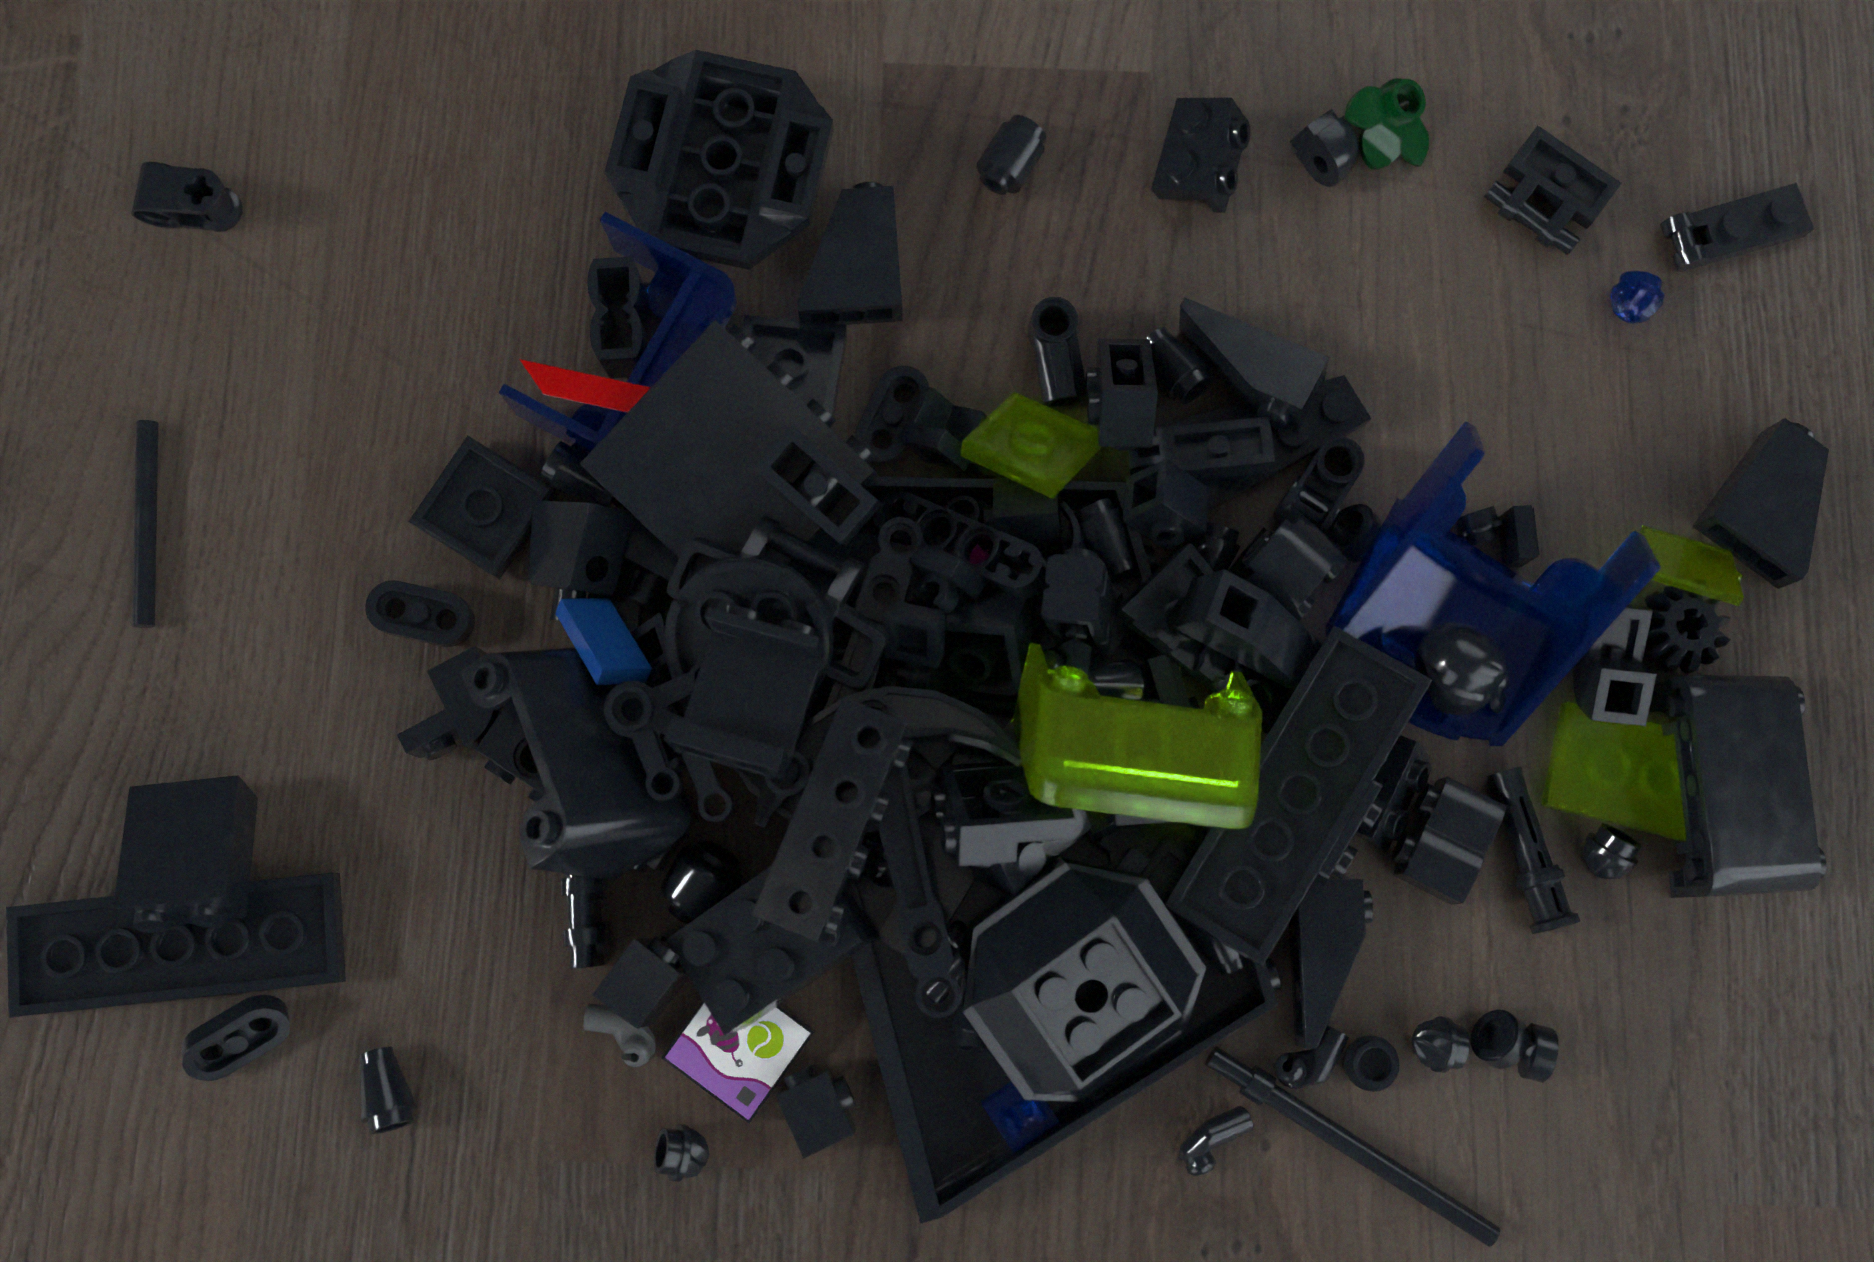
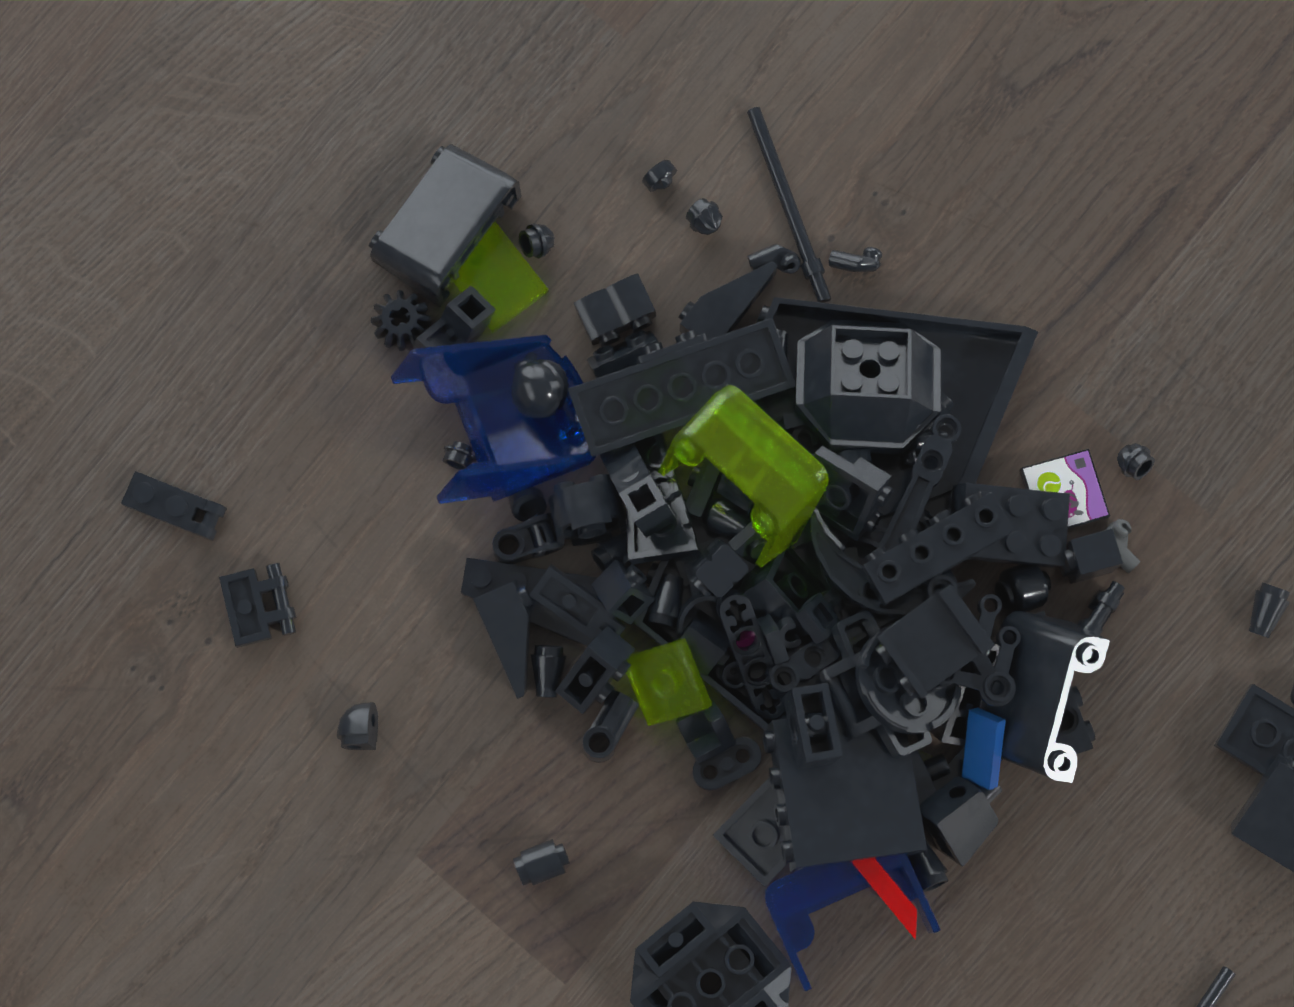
camera: 140 degrees left, 0 degrees up
(422, 613) = (1069, 854): black plate -> none
(459, 719) = (1078, 794): black brick -> none
(481, 507) = (992, 889): black plate -> none
(620, 314) = (843, 926): black brick -> none
(817, 1109) = (1048, 428): black brick -> none
(856, 262) = (677, 867): black slope -> none
(1018, 1118) = (951, 345): clear blue tile -> none
(1202, 151) = (432, 780): black bracket -> none
(1371, 1063) = (746, 235): black plate -> none
(1390, 123) = (317, 712): dark green plate -> none
(1500, 1039) = (672, 196): black tile -> none
(1518, 536) = (444, 432): black tile -> none
(1537, 874) = (582, 257): black pin -> none
(1637, 296) = (266, 509): clear blue plate -> none
(1695, 566) = (369, 347): clear neon green piece -> none
(1771, 504) = (295, 347): black slope -> none

